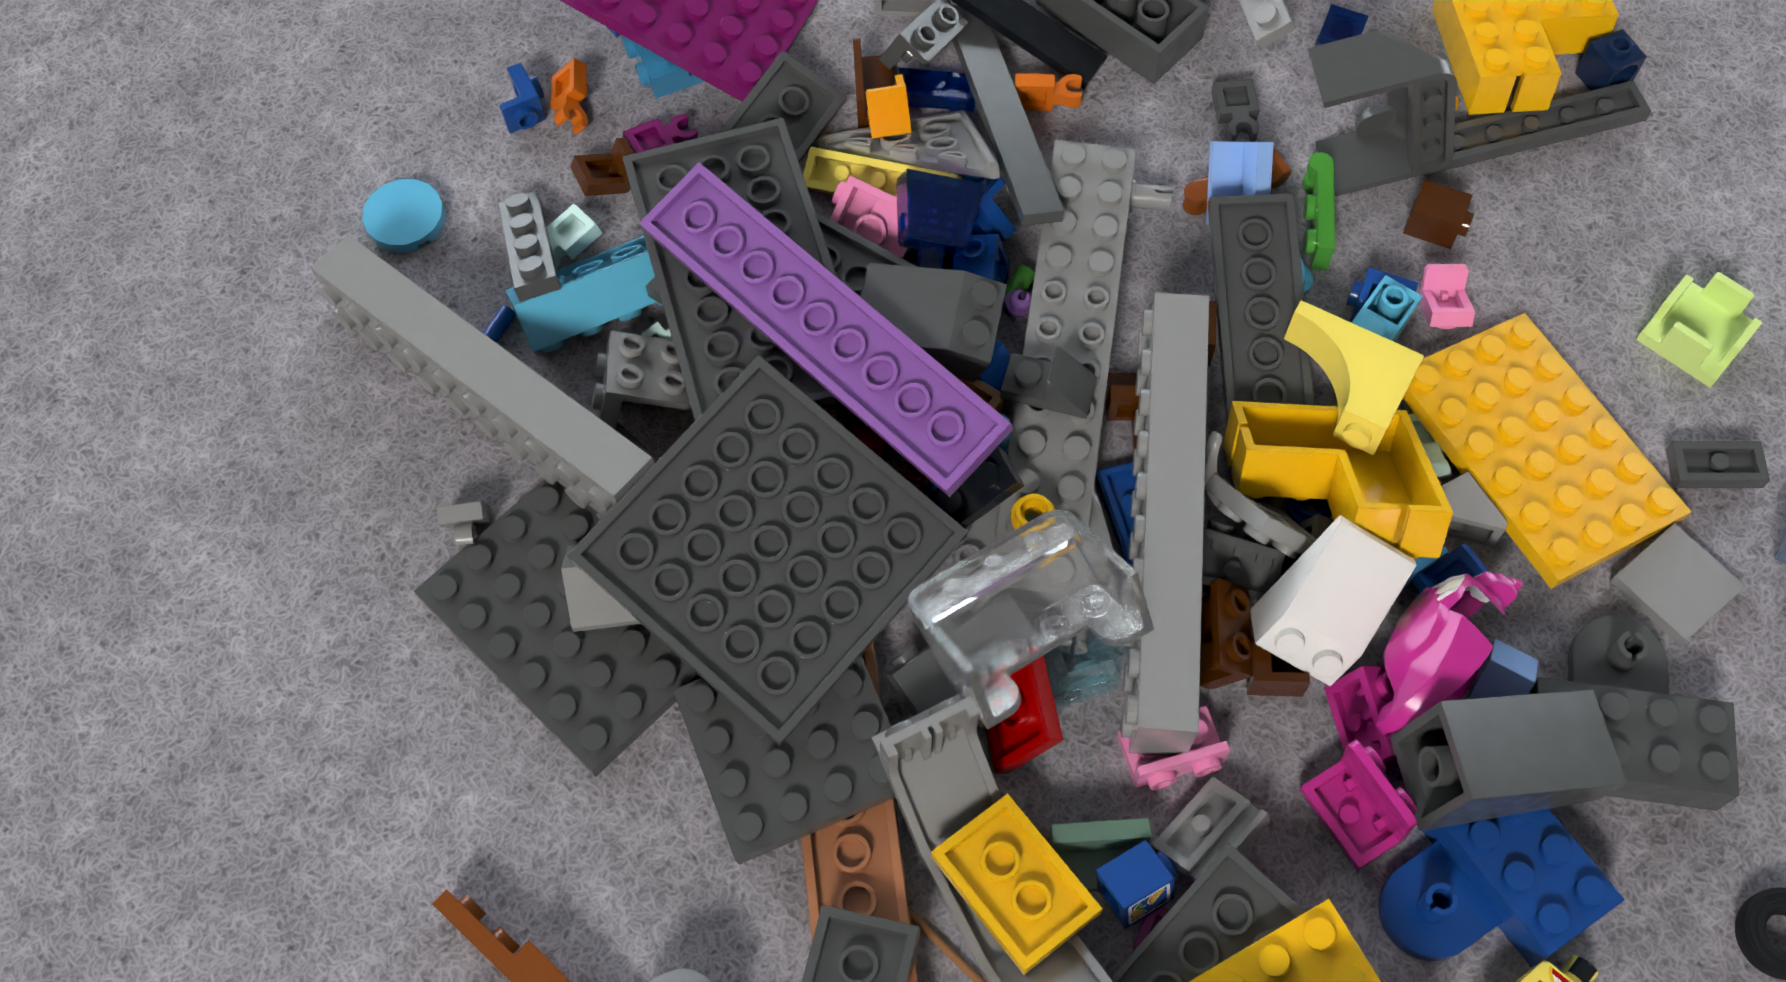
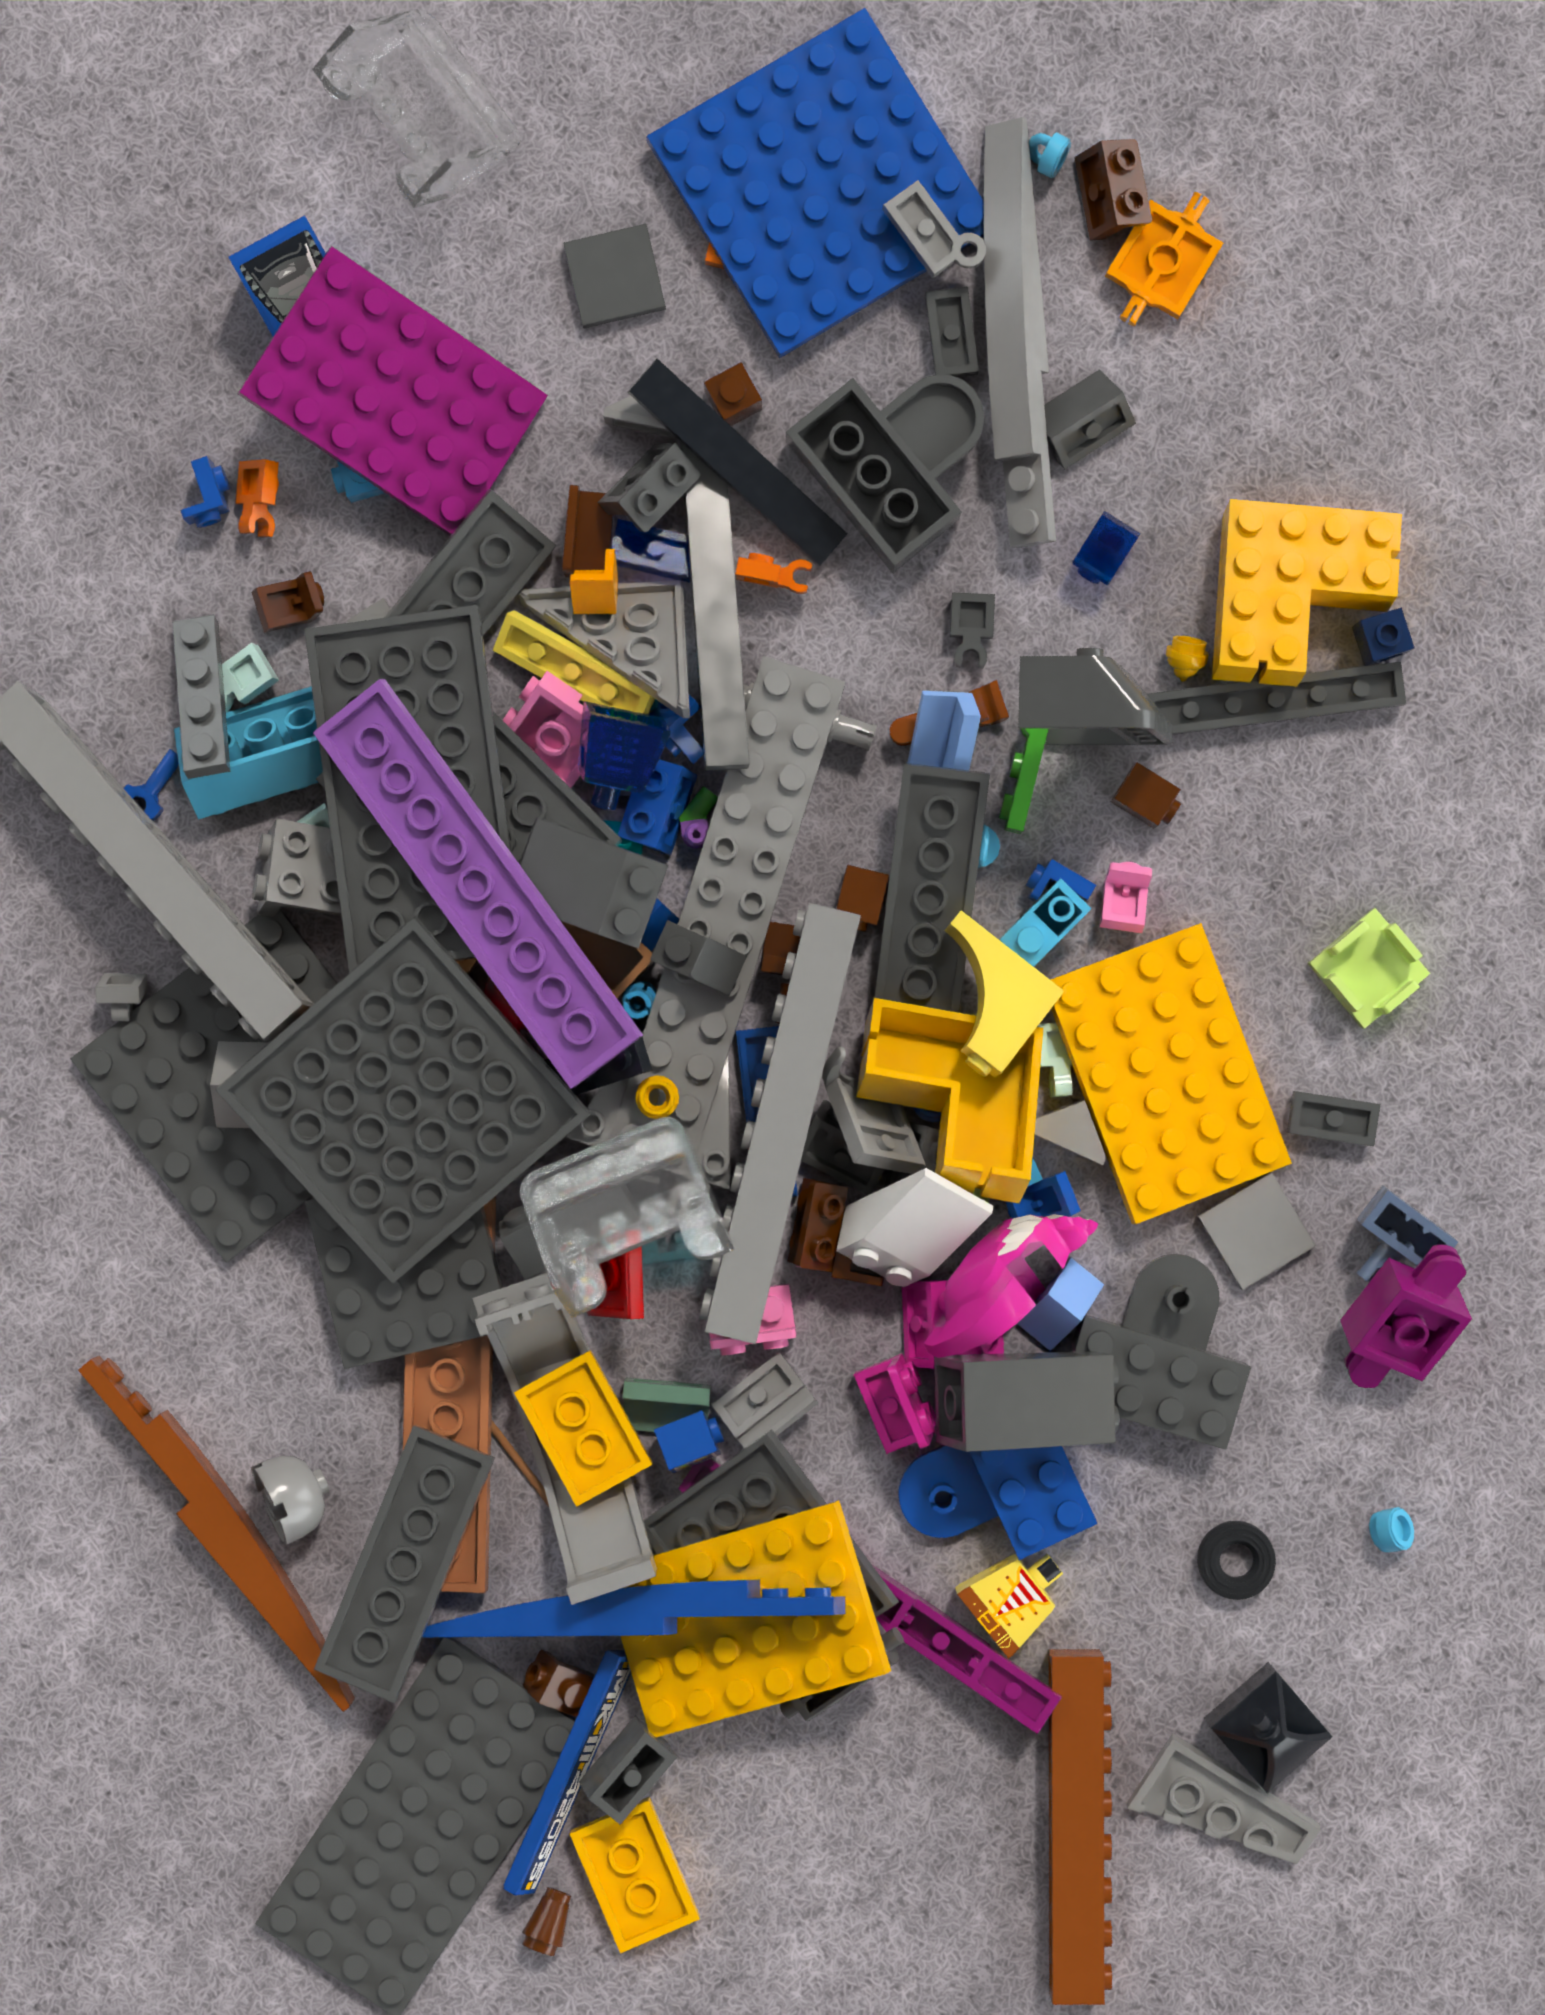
camera: 10 degrees right, 25 degrees up
(403, 215) = (72, 619): medium azure tile -> none
(655, 135) = (342, 571): magenta plate -> none

